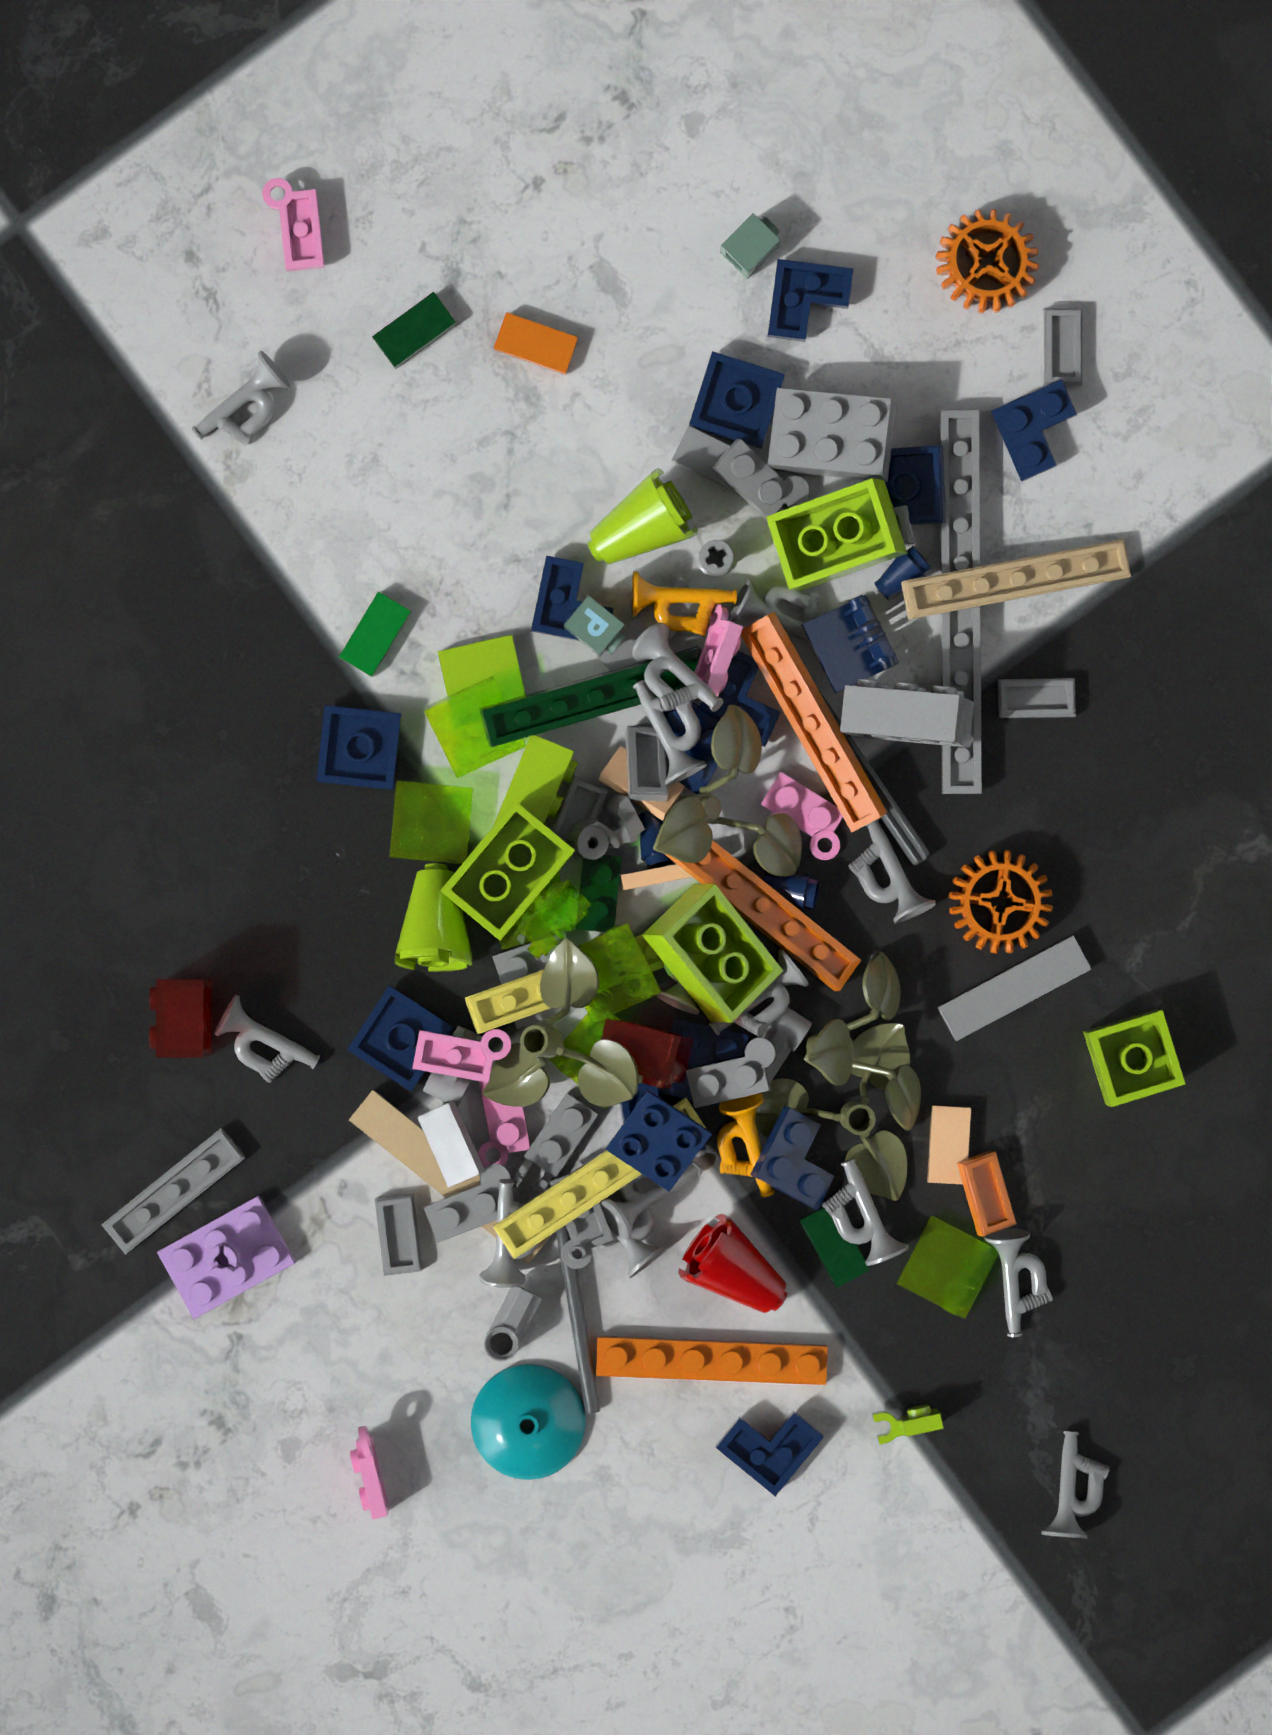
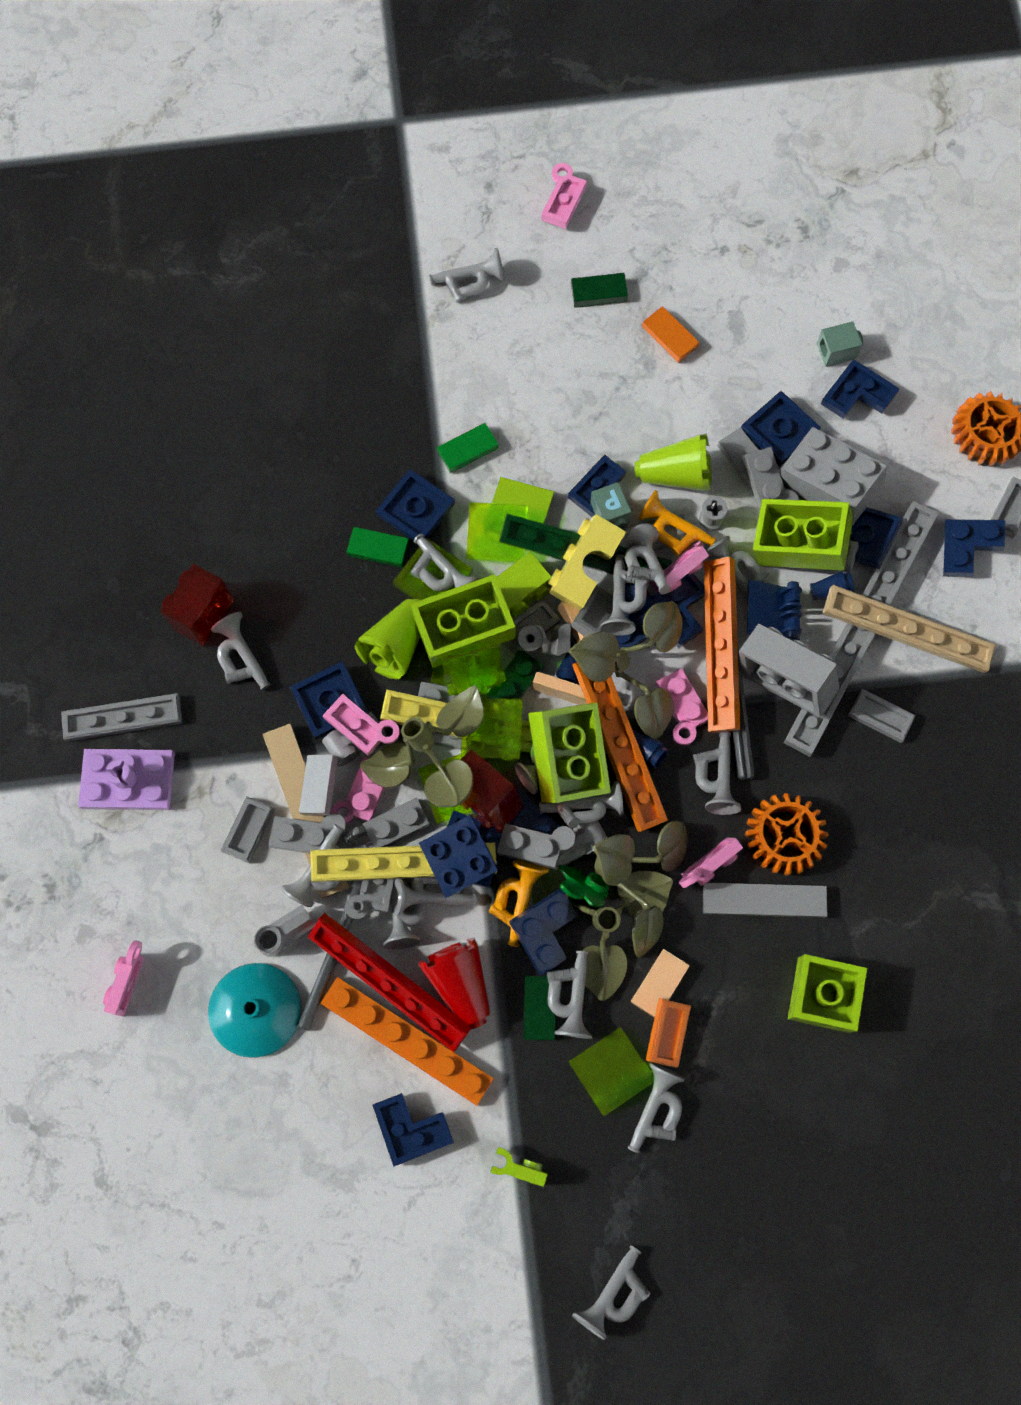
camera: 30 degrees right, 15 degrees down
(343, 820) = (377, 547): none -> green tile
(474, 816) = (452, 575): none -> light grey piece
(601, 683) = (596, 538): none -> light yellow arch
(659, 1313) = (389, 982): none -> red tile
(808, 1091) = (580, 886): none -> green plate
(930, 993) = (703, 869): none -> bright pink hinge

